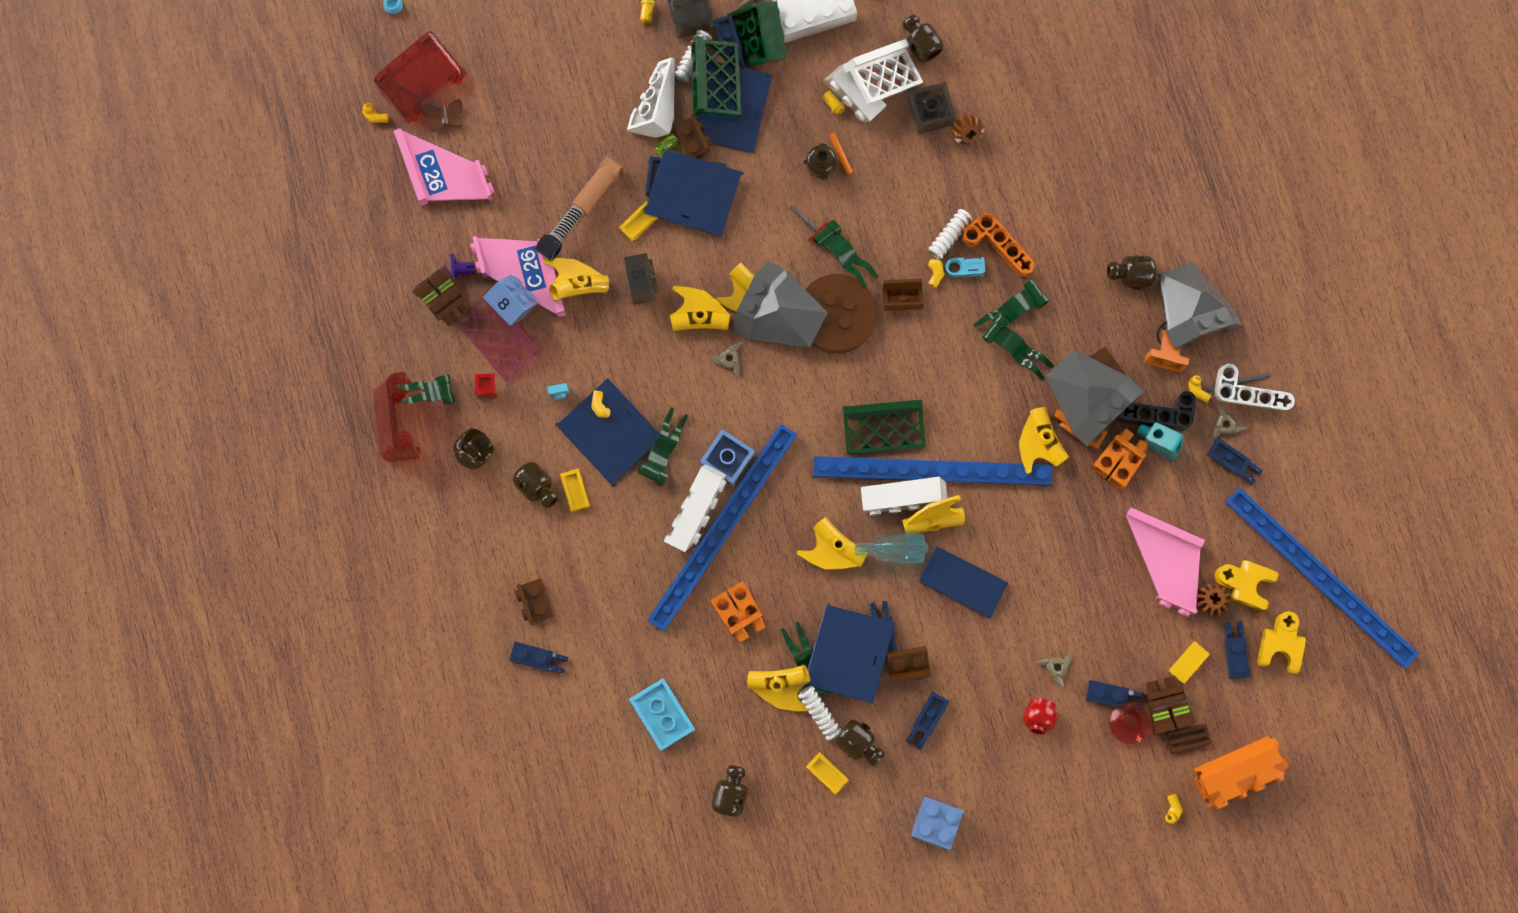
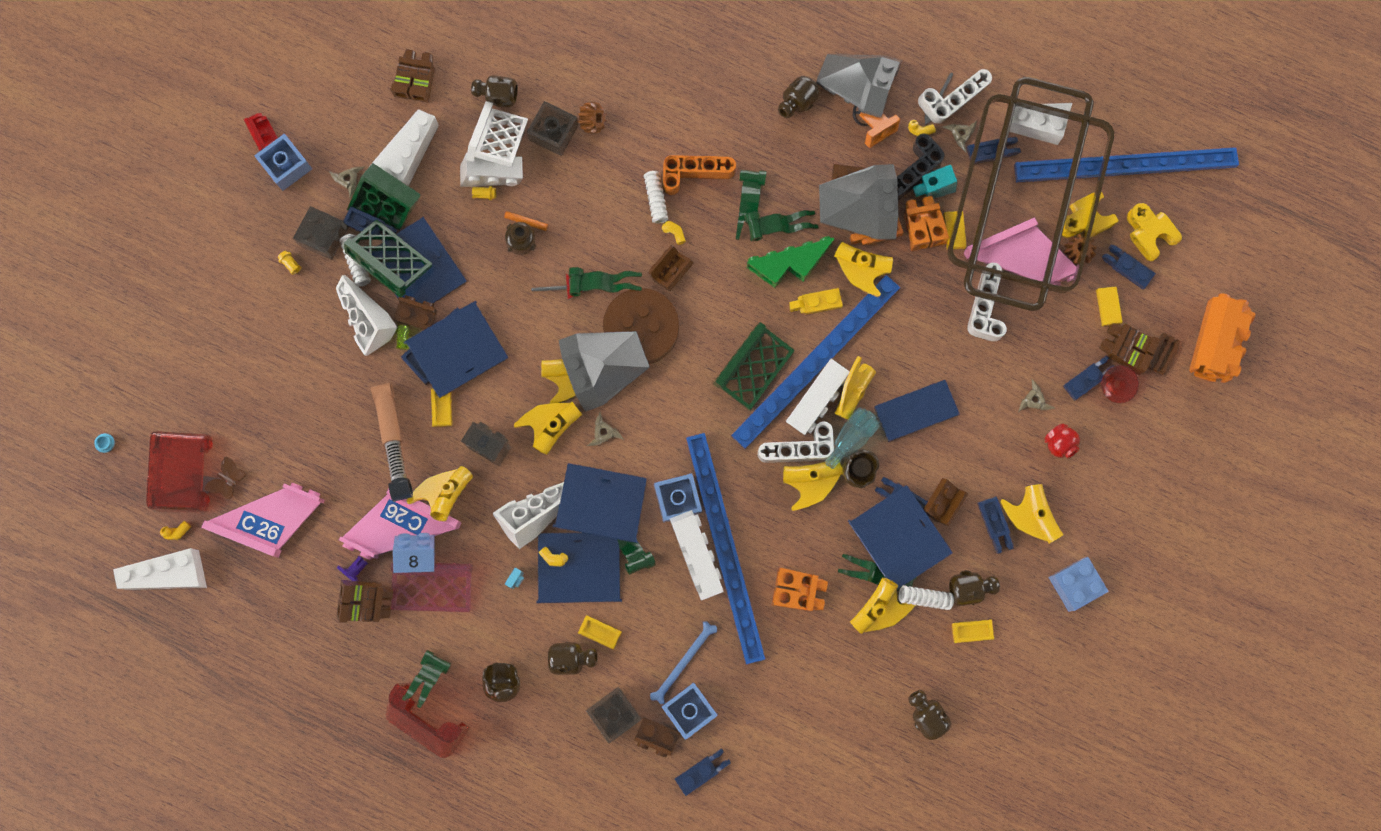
camera: 50 degrees left, 0 degrees up
(340, 136) = (169, 571): none -> white wedge
(485, 386) = (460, 630): red panel -> none
(522, 553) = (614, 714): none -> clear smoke brick
(567, 576) = (707, 630): none -> medium blue piece
(574, 607) = (689, 711): none -> medium blue brick
(613, 360) = (529, 517): none -> white wedge
(662, 714) = (826, 715): medium azure plate -> none
(672, 403) = (601, 503): none -> dark blue piece
(849, 513) = (794, 447): none -> white beam
(875, 576) = (860, 468): none -> dark brown piece
(954, 737) = (1026, 516): none -> yellow pin
(968, 267) = (690, 206): medium azure piece -> none
(980, 430) = (817, 302): none -> yellow hinge
(999, 386) = (798, 261): none -> green slope
(1103, 562) = (984, 317): none -> white beam
(1138, 487) = (960, 240): none -> yellow tile
(1175, 810) = (1207, 408): yellow arm -> none
(1282, 440) = (1085, 120): none -> dark brown bar
(1292, 476) = (1039, 124): none -> white wedge

